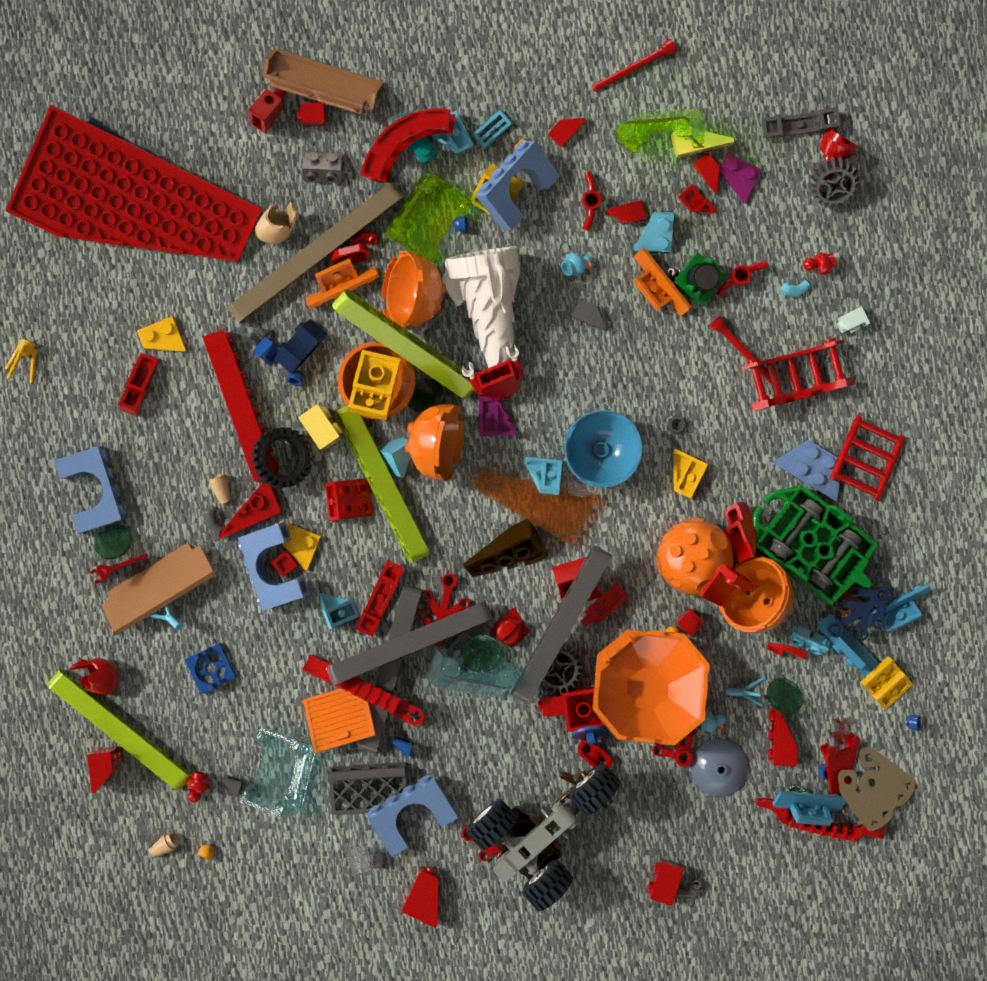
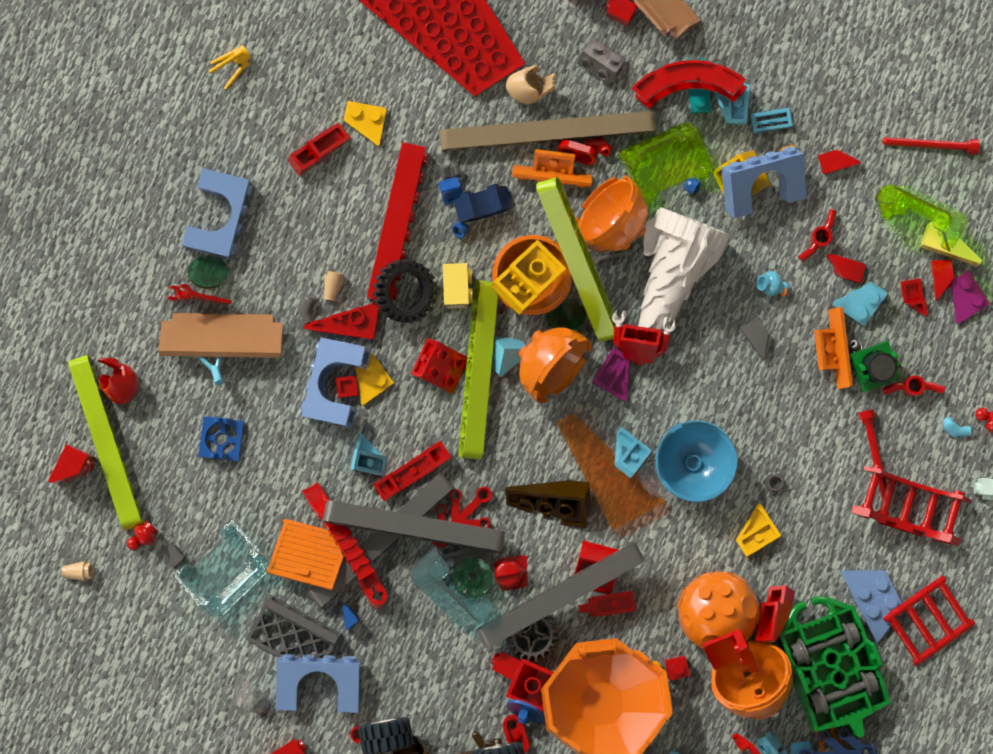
camera: 25 degrees right, 5 degrees down
(206, 852) = (112, 601): light orange hinge -> none

